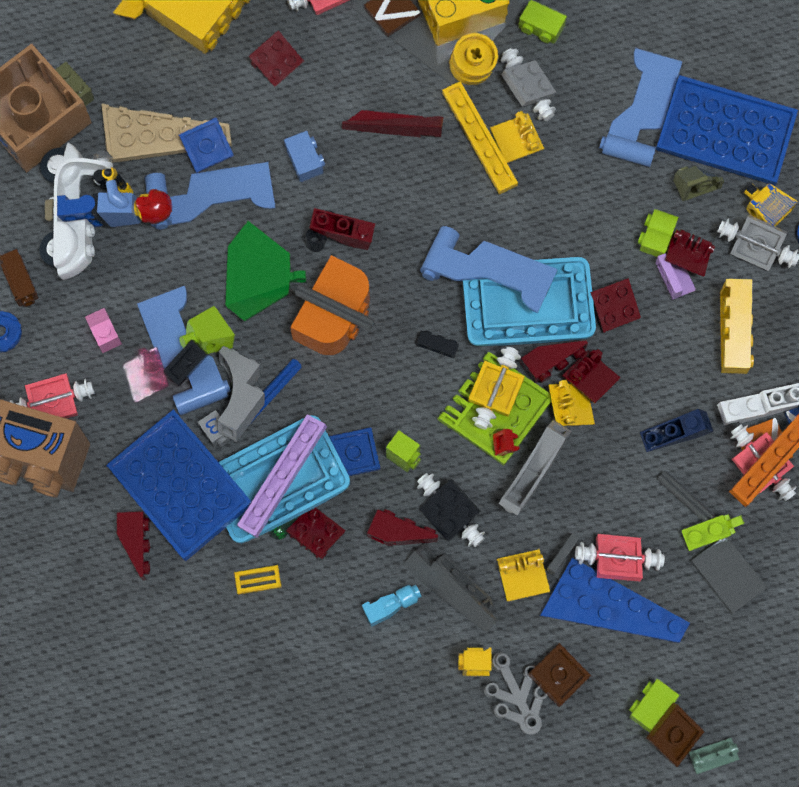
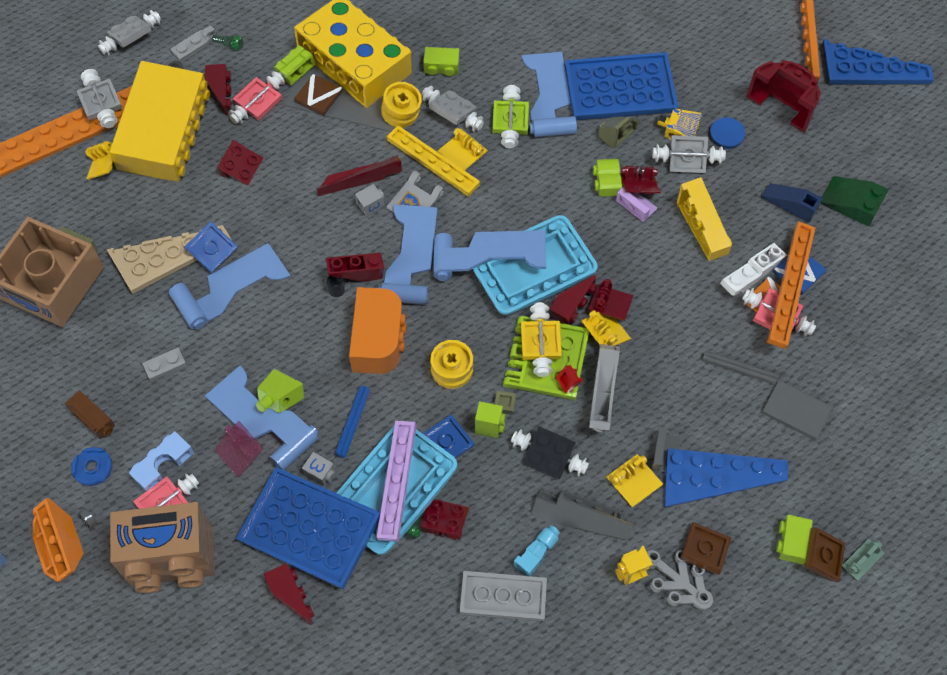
camera: 25 degrees left, 10 degrees down
(49, 359) = (171, 448): none -> light blue arch
(70, 244) = (124, 343): piece -> none
(103, 330) = (185, 427): bright pink slope -> none
(112, 253) = (164, 364): none -> light grey plate
(185, 362) = (270, 422): black plate -> none
(245, 398) = (335, 431): light grey arch -> none
(256, 580) = (413, 589): yellow tile -> none
(257, 273) = (298, 329): green panel -> none
(304, 156) = (297, 226): medium blue brick -> none
(334, 307) = (379, 325): dark grey axle -> none
(337, 634) = (503, 596): none -> light grey plate
(382, 375) = (452, 364): none -> yellow wheel
(393, 156) = (370, 199): none -> light grey brick
(395, 531) = (510, 489): dark red slope -> none
(412, 239) = (415, 253): none -> medium blue door
(430, 438) = (506, 400): none -> olive plate
(437, 176) = (413, 195): none -> light grey flag
(437, 344) = (475, 327): black piece -> none
(587, 119) = (510, 117): none -> lime plate
(615, 305) = (602, 241): dark red hinge -> none
(619, 557) = (705, 432): coral plate -> none
(678, 430) = (698, 316): dark blue slope -> none
(711, 531) = (766, 381): lime hinge -> none

